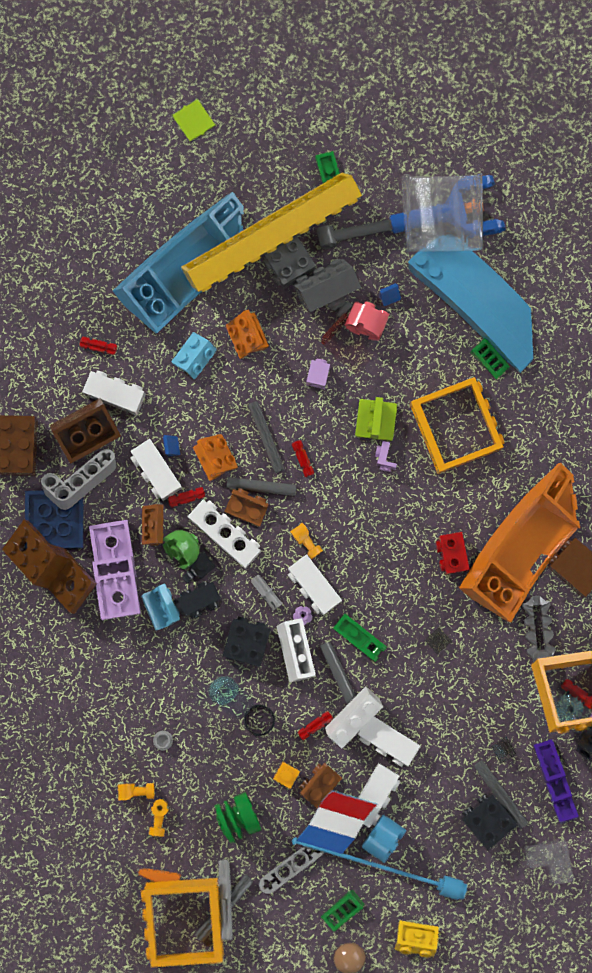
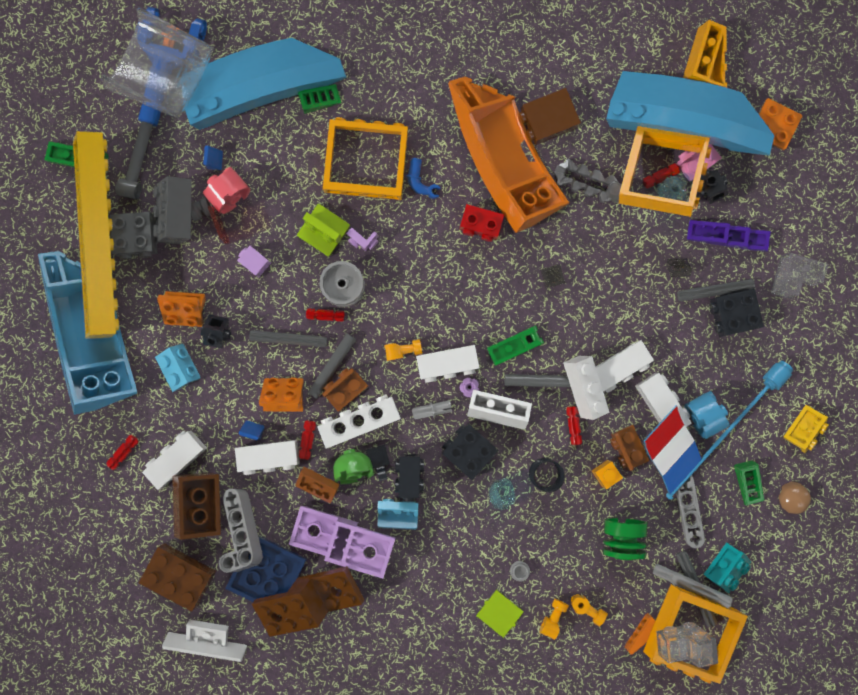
camera: 65 degrees left, 5 degrees up
(117, 741) = (499, 613): none -> lime piece
(173, 908) = (687, 643): none -> clear brick
(237, 372) = (215, 335): none -> black brick
(256, 927) = (728, 568): none -> teal bracket
(338, 448) = (331, 279): none -> light grey wheel
(461, 476) = (414, 180): none -> blue piece

